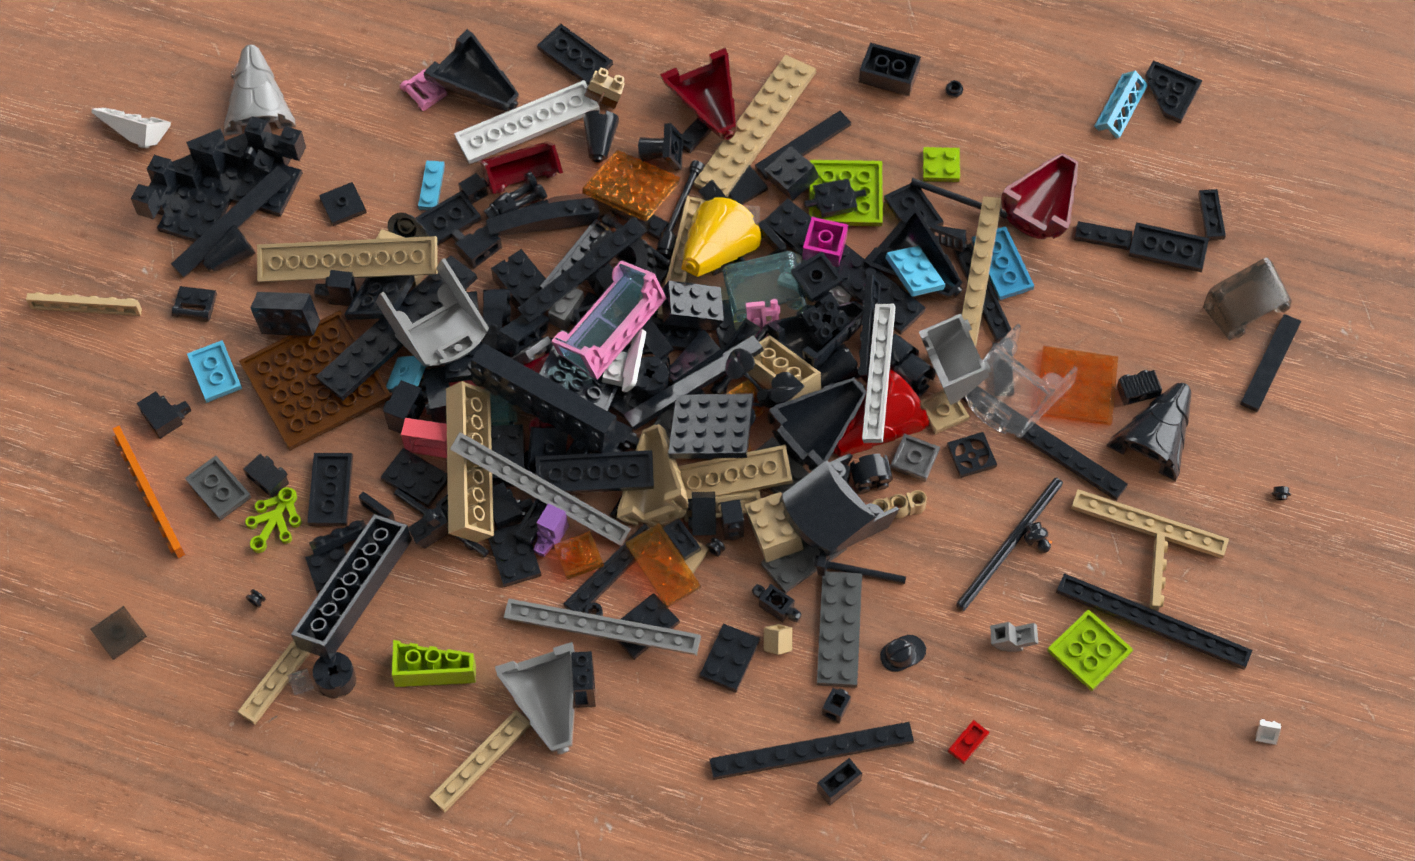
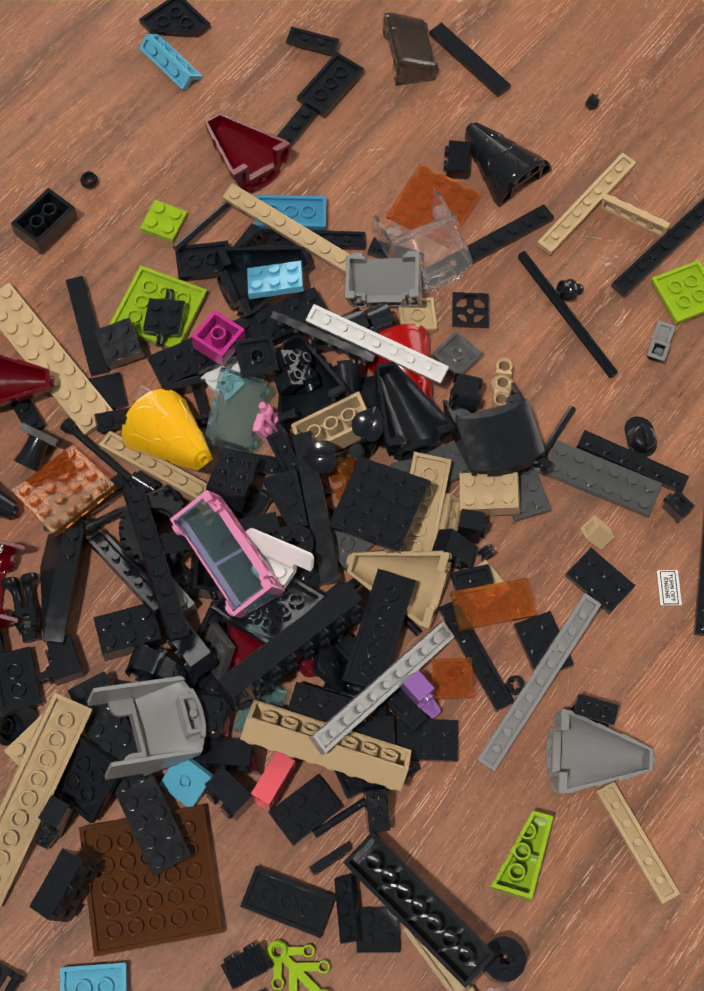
camera: 75 degrees left, 5 degrees up
(749, 724) = (669, 587): none -> white sticker
(774, 594) = (550, 525): black piece -> none
(870, 652) = (633, 461): none -> black plate

